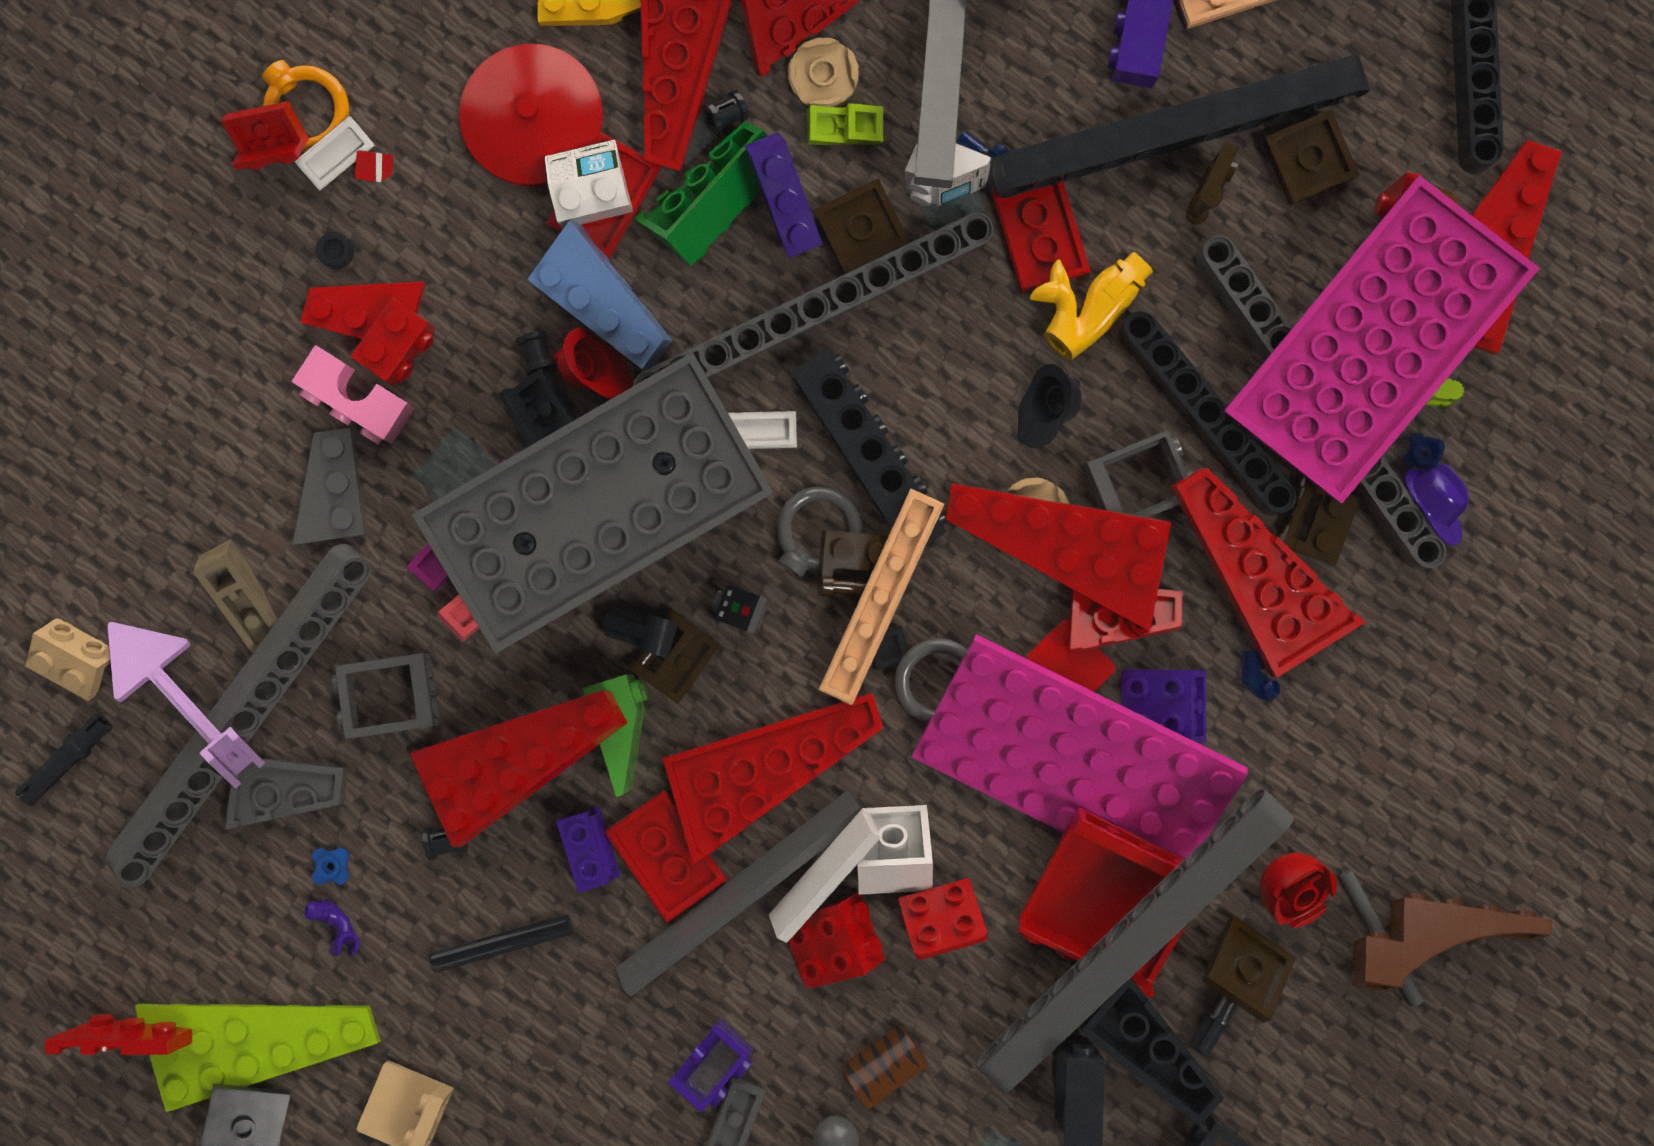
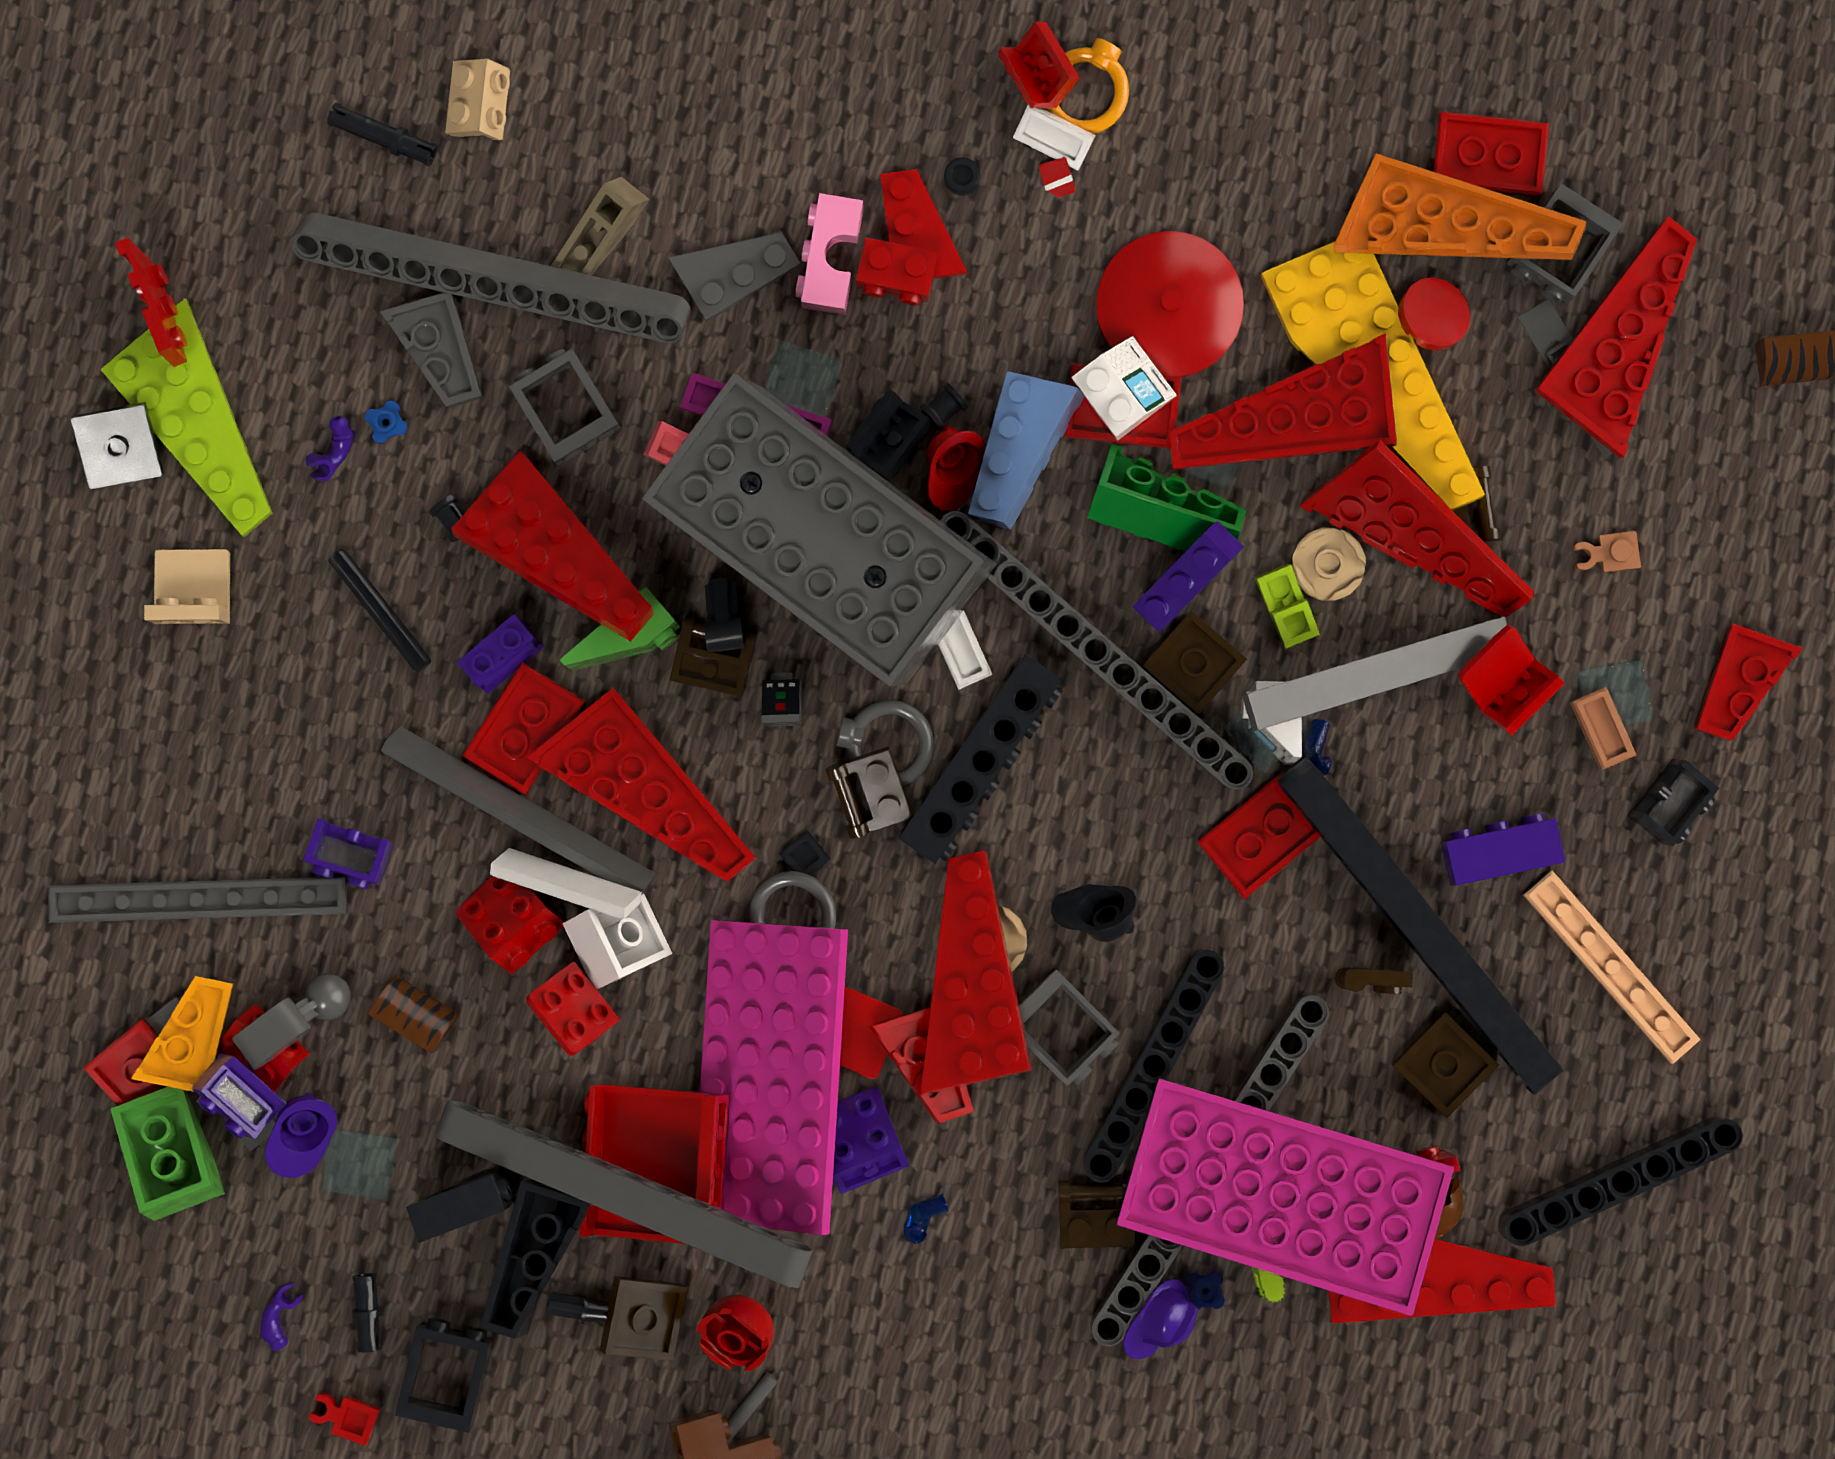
camera: 70 degrees right, 0 degrees up
(140, 657) = (506, 165): lavender piece -> none
(725, 112) = (1249, 487): black bush -> none
(881, 596) = (848, 828): light nougat tile -> none
(1103, 305) = (1215, 924): yellow piece -> none
(1270, 587) = (1010, 1194): red wing -> none

